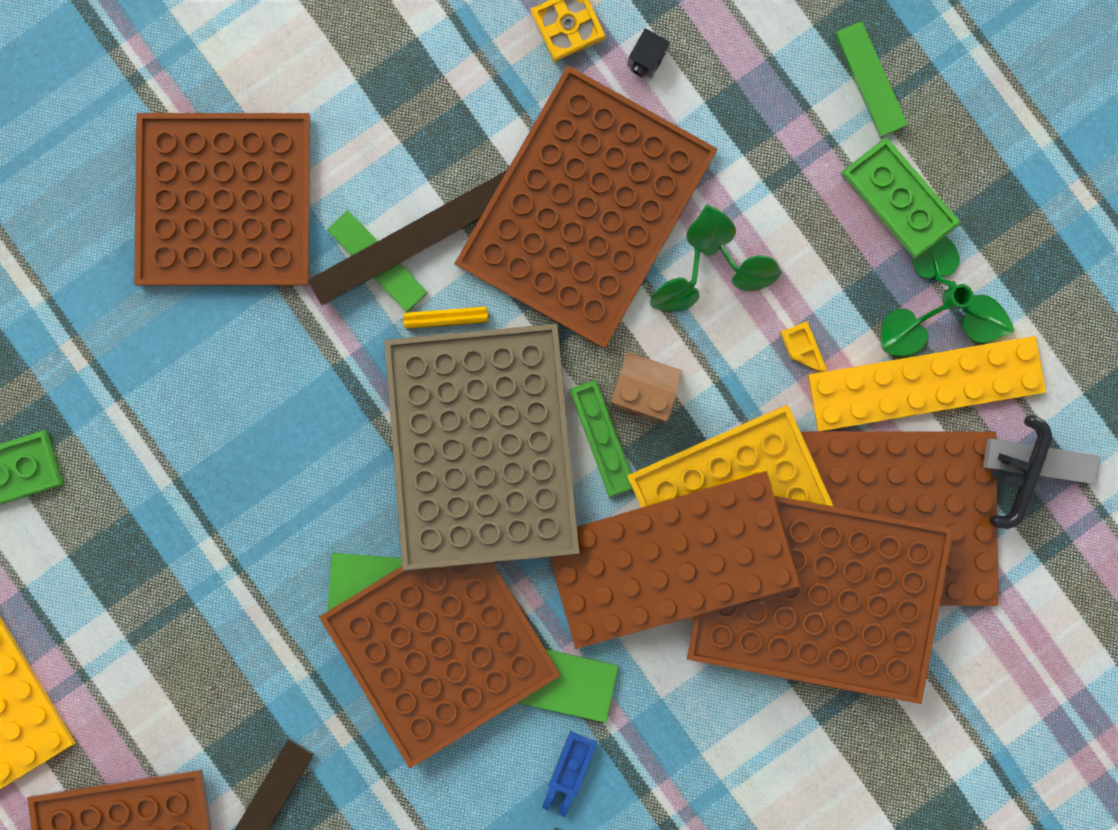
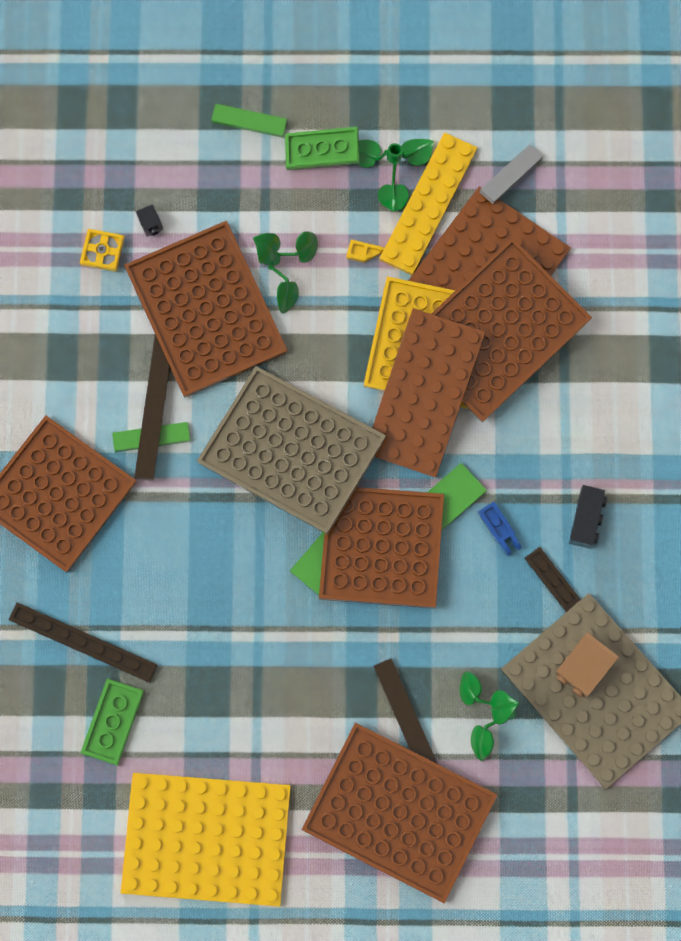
camera: 50 degrees left, 10 degrees down
(68, 368) = (83, 642): none -> dark brown tile
(445, 317) = (208, 422): yellow axle -> none
(602, 437) = (333, 386): bright green tile -> none
(646, 388) = (326, 345): medium nougat slope -> none
(1030, 477) = (510, 178): black piece -> none

